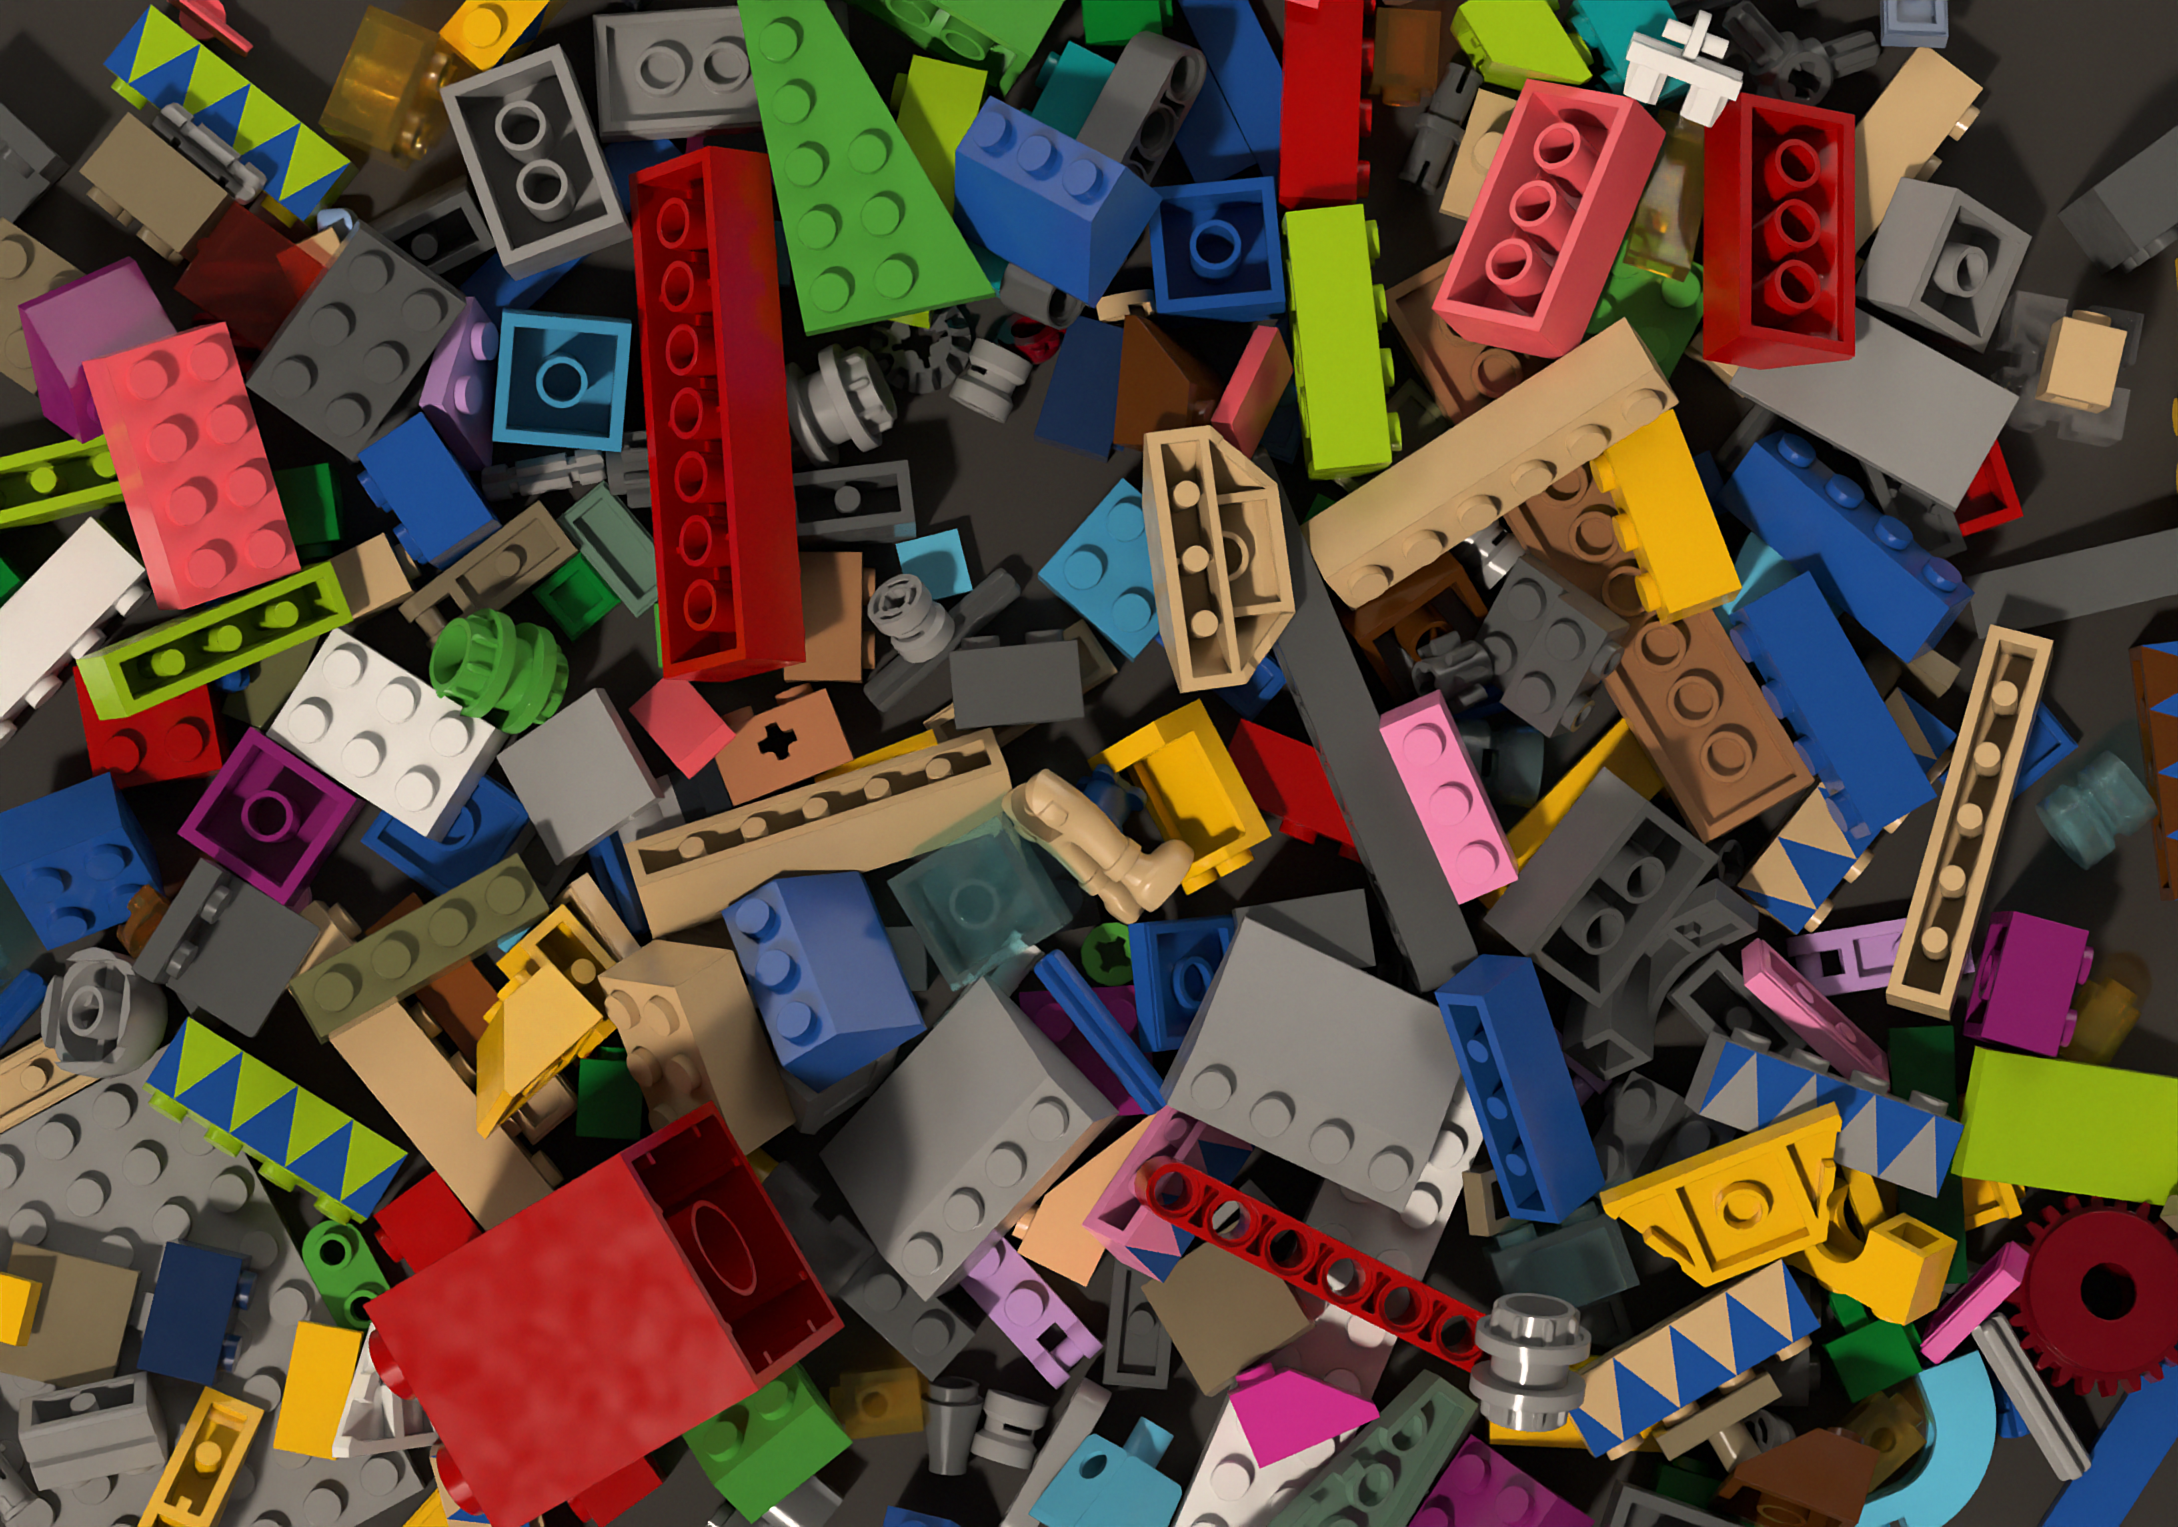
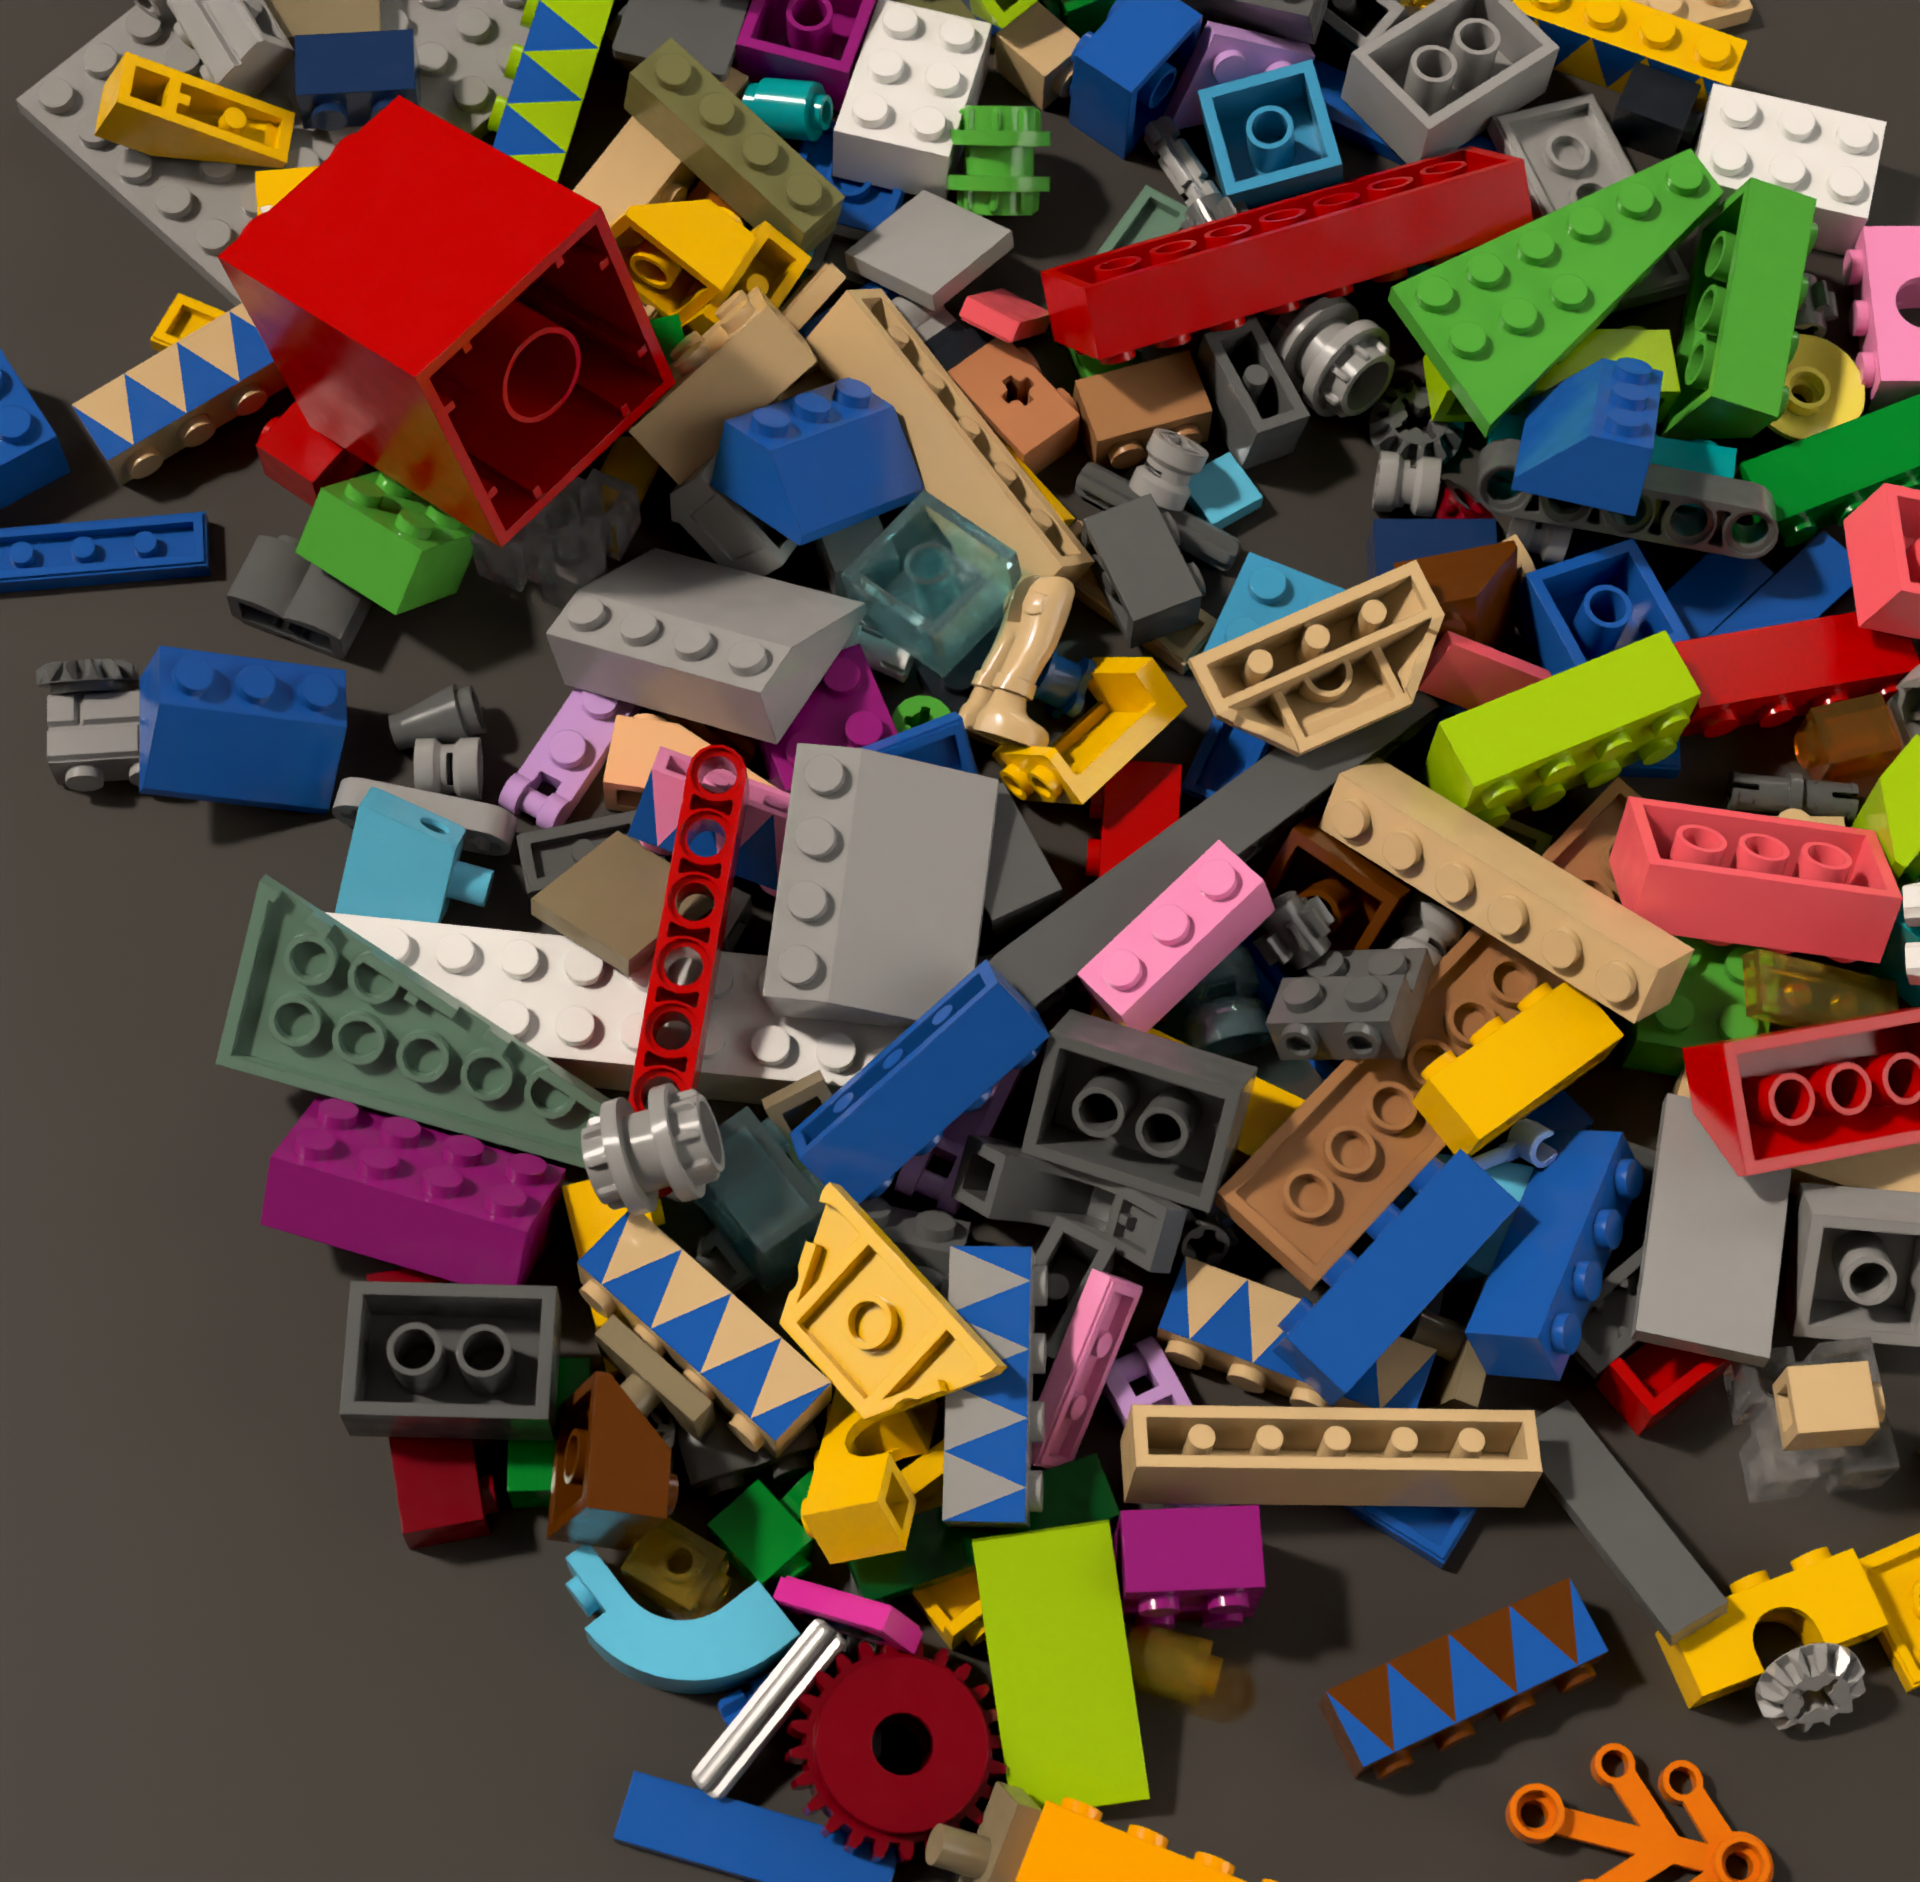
camera: 75 degrees right, 20 degrees down
(360, 870) = (791, 107): none -> teal brick
(494, 571) = (1089, 153): dark tan plate -> none
(577, 597) = (1083, 222): green tile -> none
(879, 1401) = (442, 649): clear yellow brick -> none
(920, 1330) = (518, 666): dark grey brick -> none
(1101, 1030) = (857, 696): blue axle -> none
(1293, 1410) = (538, 970): dark pink slope -> none
(1737, 526) = (1523, 1142): none -> light blue hand
(2098, 808) = (1387, 1593): clear light blue wheel -> none

